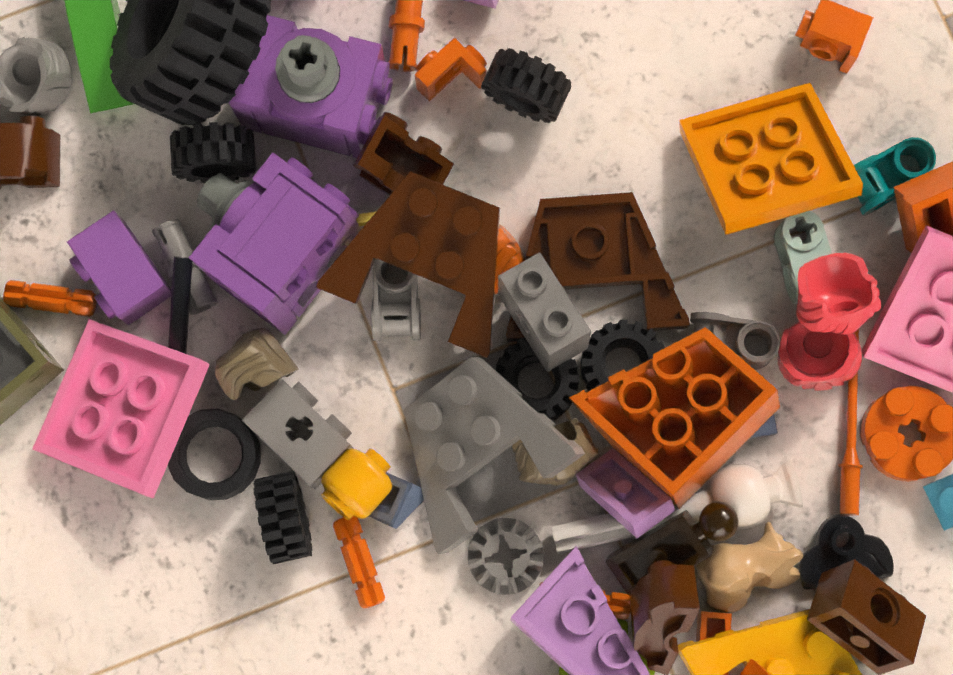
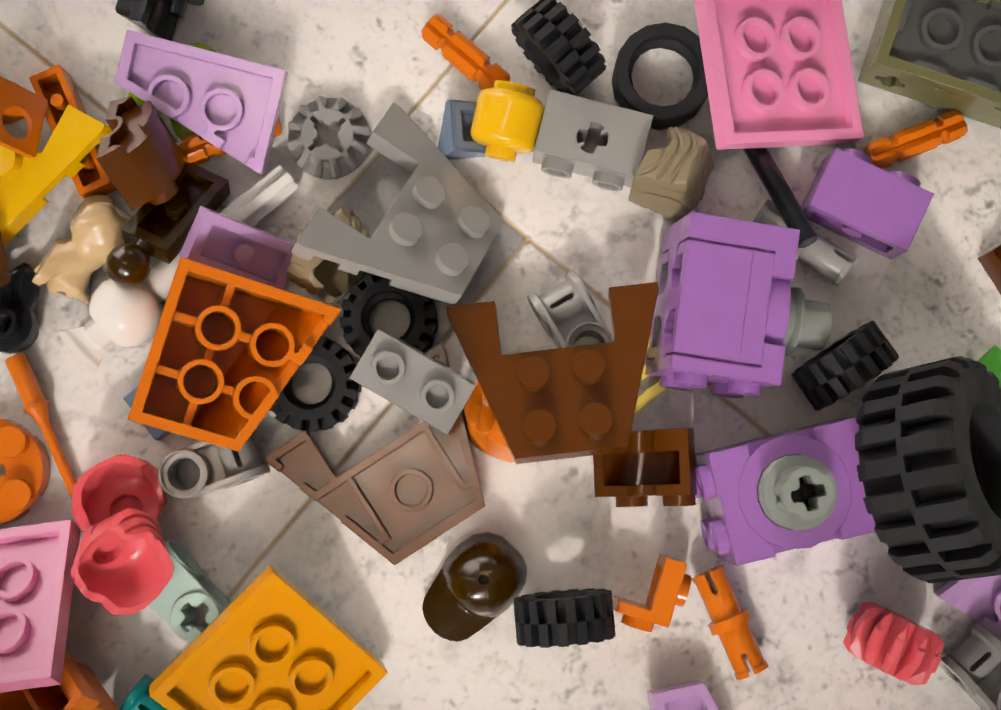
camera: 145 degrees right, 5 degrees up
(599, 148) = (457, 600): none -> dark brown cap

